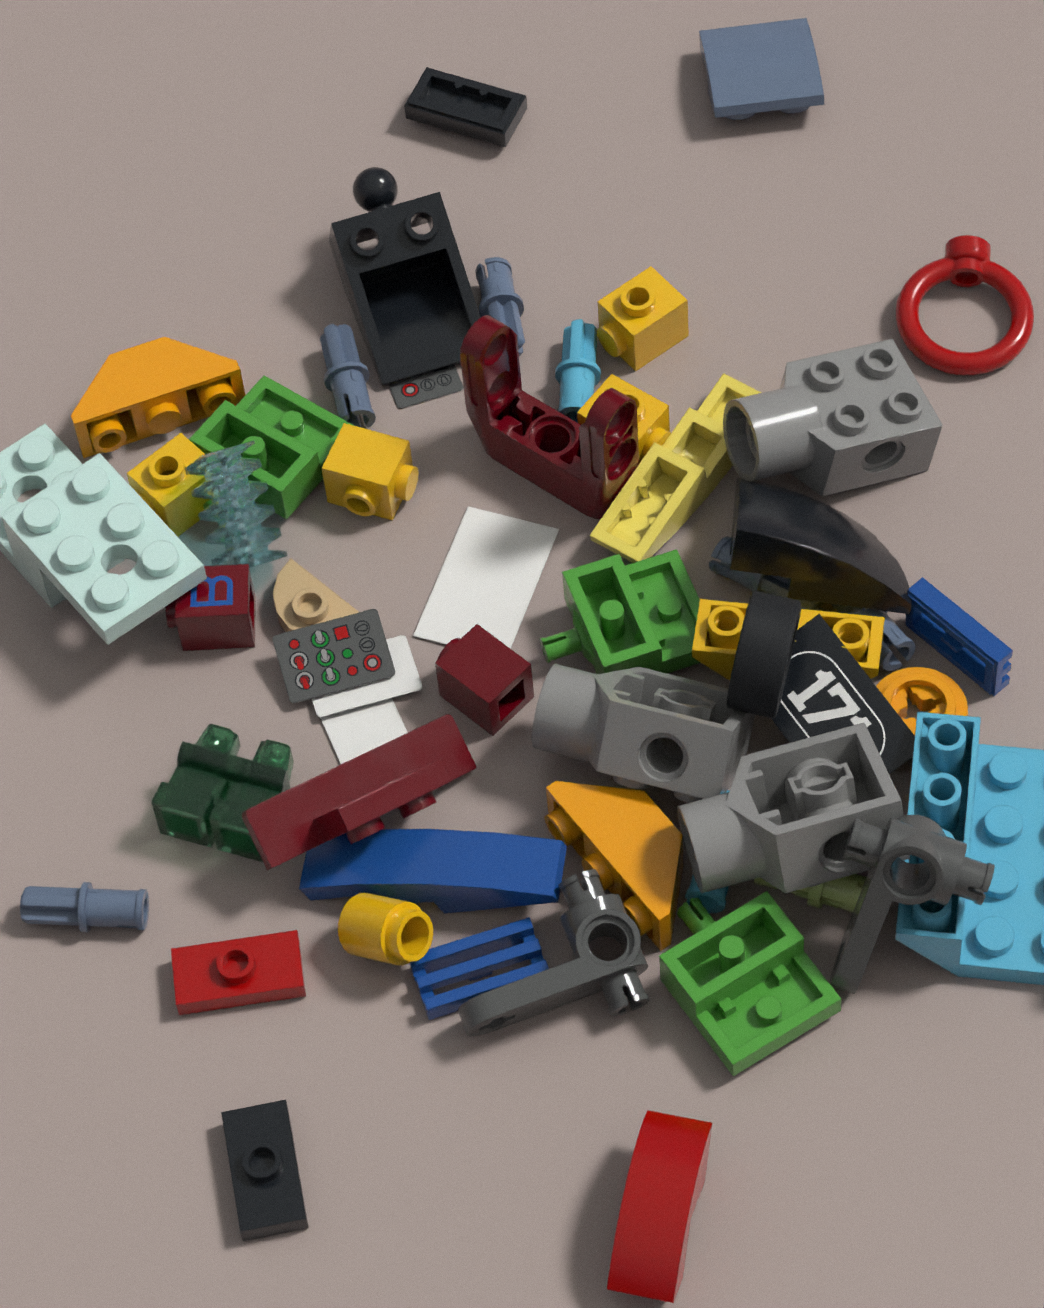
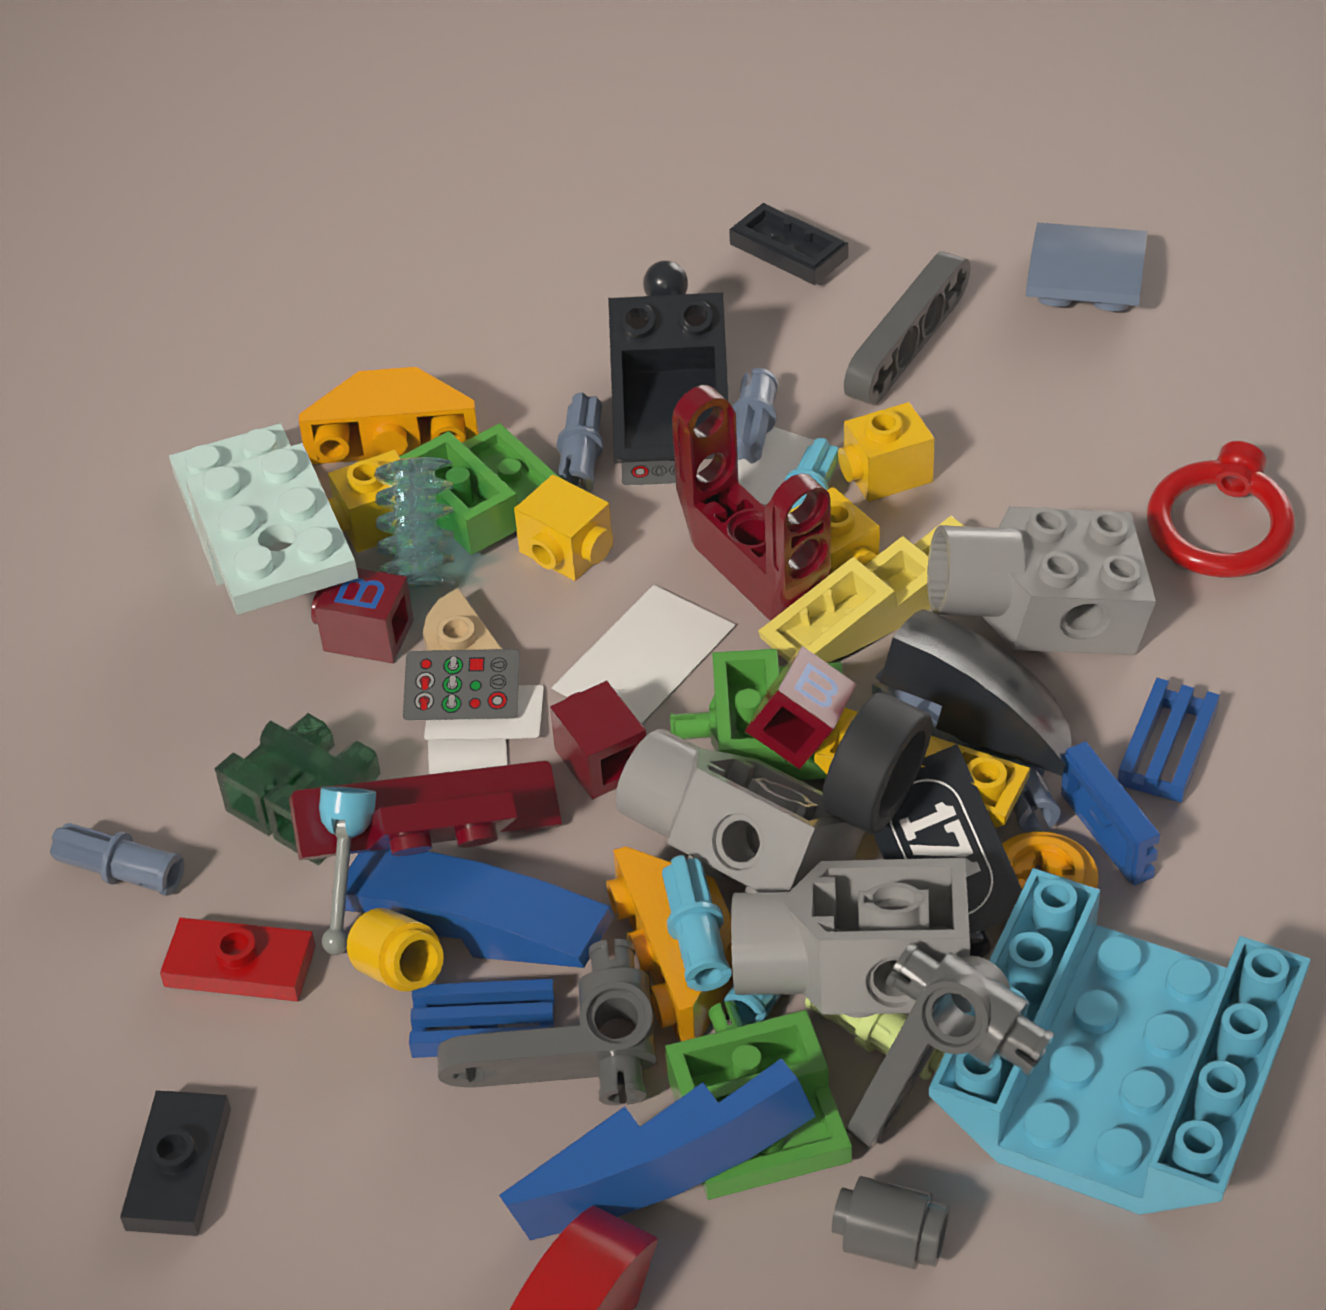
camera: 15 degrees right, 10 degrees down
(302, 817) = (346, 815): none -> hinge
(541, 352) = (779, 456): none -> white sticker
(614, 177) = (906, 328): none -> dark grey beam
(648, 839) = (695, 924): none -> medium azure axle
(668, 611) = (801, 707): none -> dark red brick
(668, 1068) = (635, 1166): none -> blue slope
(895, 1055) = (890, 1223): none -> dark grey brick
(985, 510) = (1180, 703): none -> blue tile

